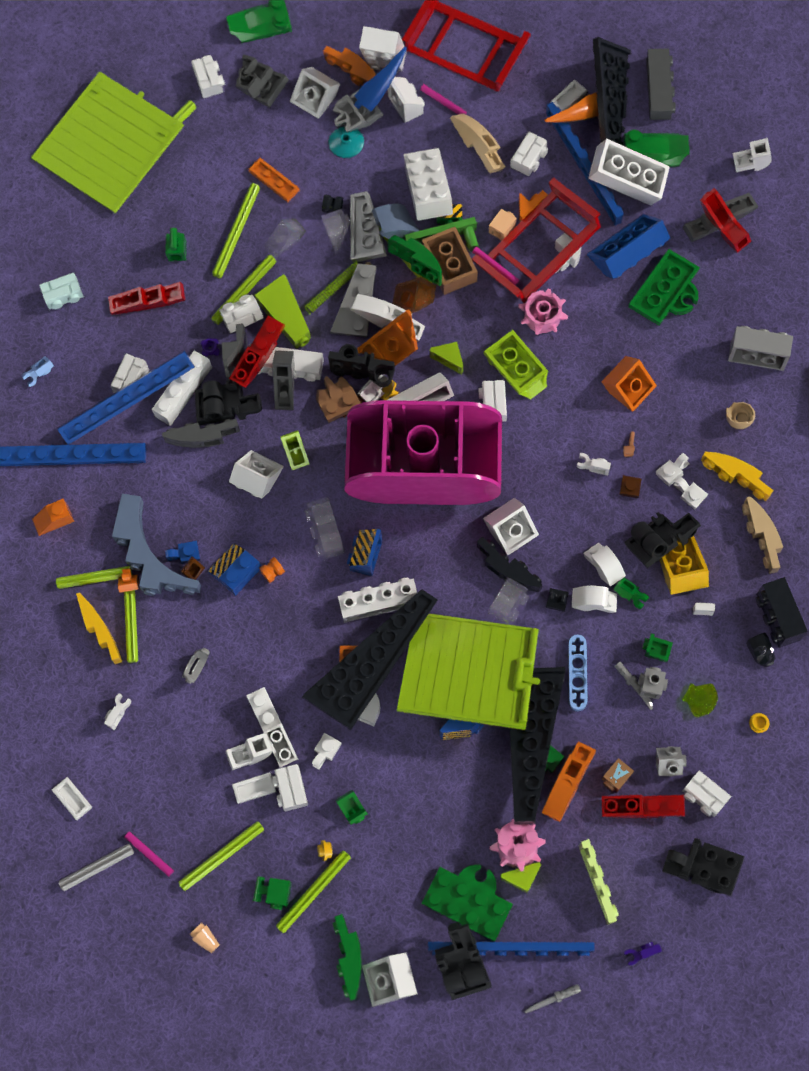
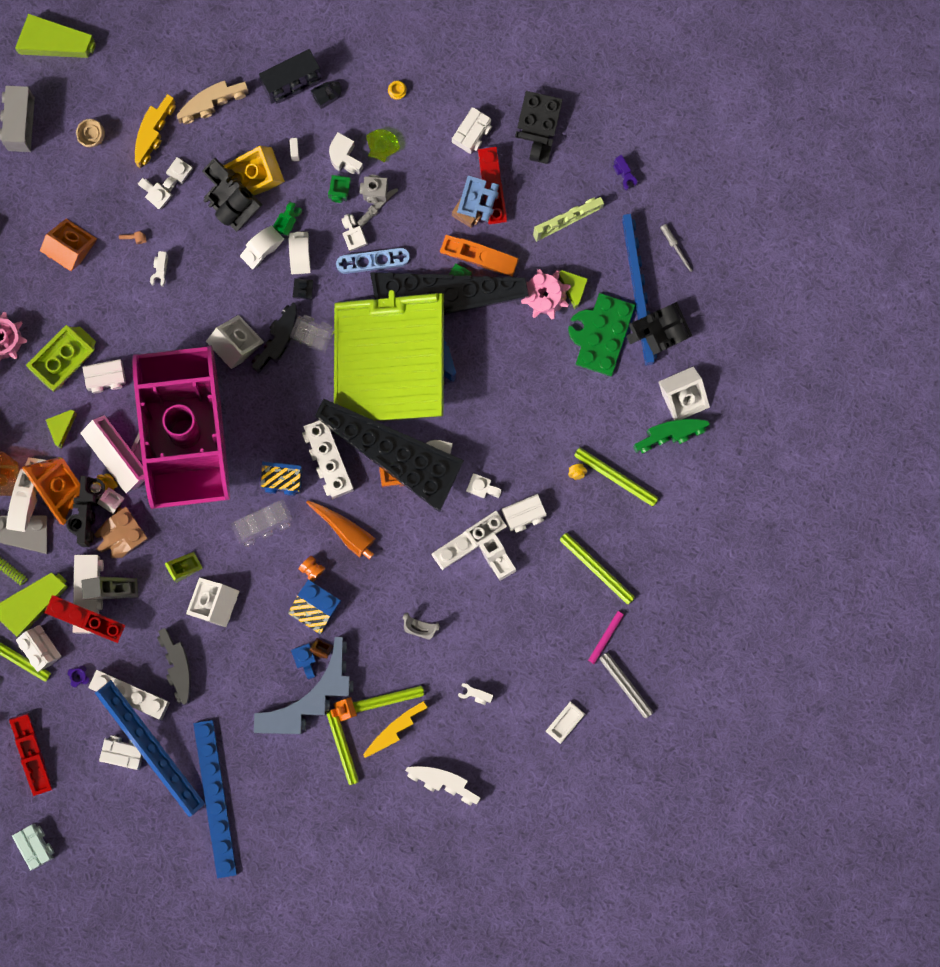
camera: 110 degrees left, 10 degrees up
(39, 369) = (124, 851): light blue plate -> none
(44, 662) = (435, 778): none -> white slope
(53, 517) = (286, 802): orange slope -> none
(204, 937) = (673, 571): light nougat cone -> none
(222, 401) = (139, 649): black plate -> none
(234, 350) = (89, 646): dark grey slope -> none
(254, 788) = (528, 549): white tile -> none
(277, 892) = (623, 508): green brick -> none
(302, 612) = (351, 534): none -> orange piece
(351, 807) = (534, 452): green bracket -> none
(604, 657) = (354, 237): none -> white plate
(629, 779) = (472, 197): none -> medium blue plate
(630, 486) = (177, 232): reddish brown plate -> none
(670, 761) = (447, 165): light grey brick -> none
(695, 653) = (339, 154): none -> white brick

